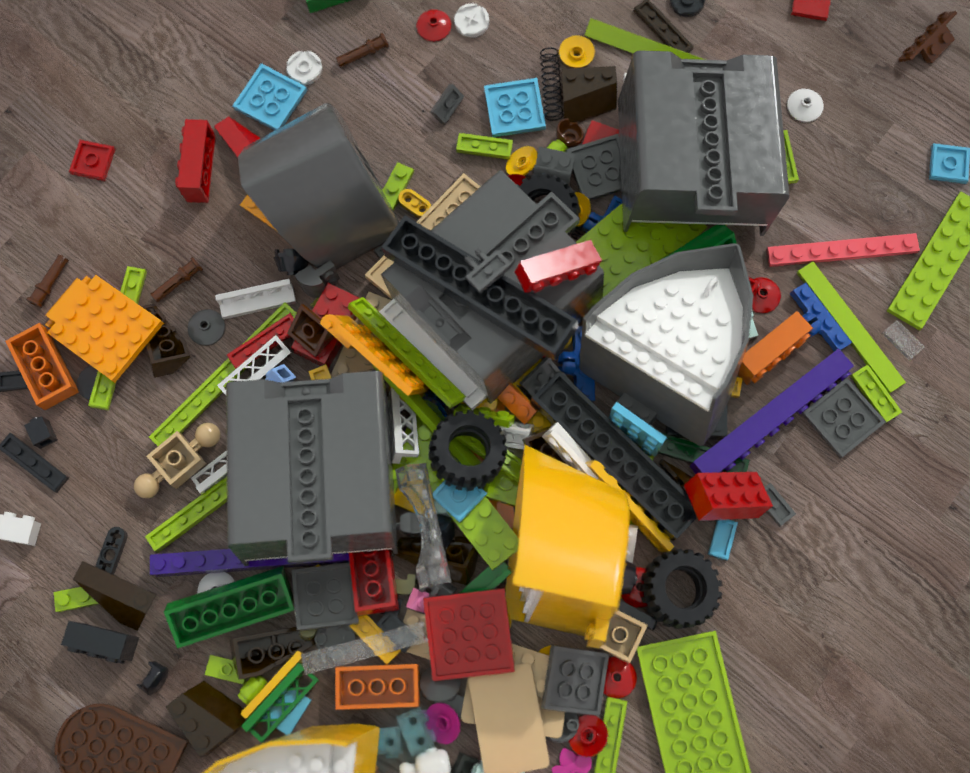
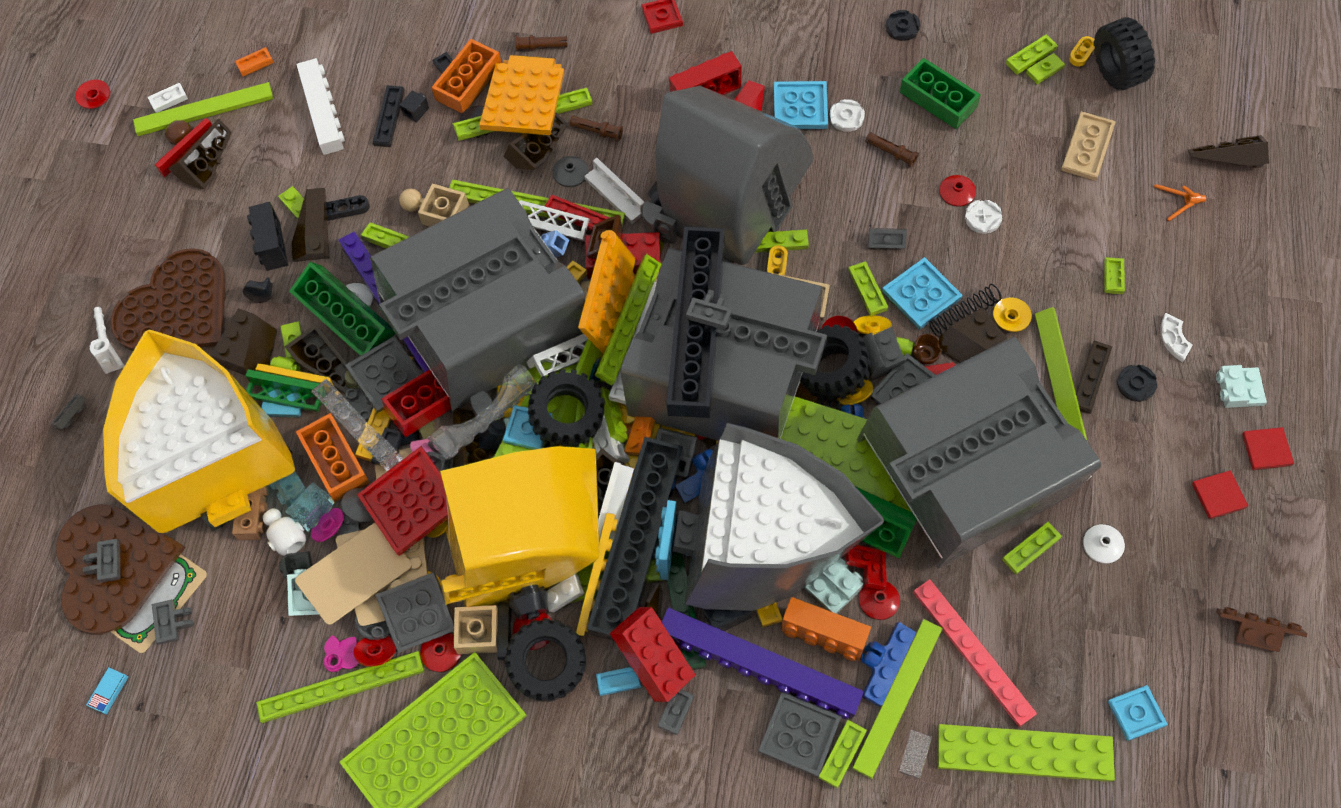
camera: 60 degrees right, 10 degrees down
(558, 266) = (751, 368): brick -> none

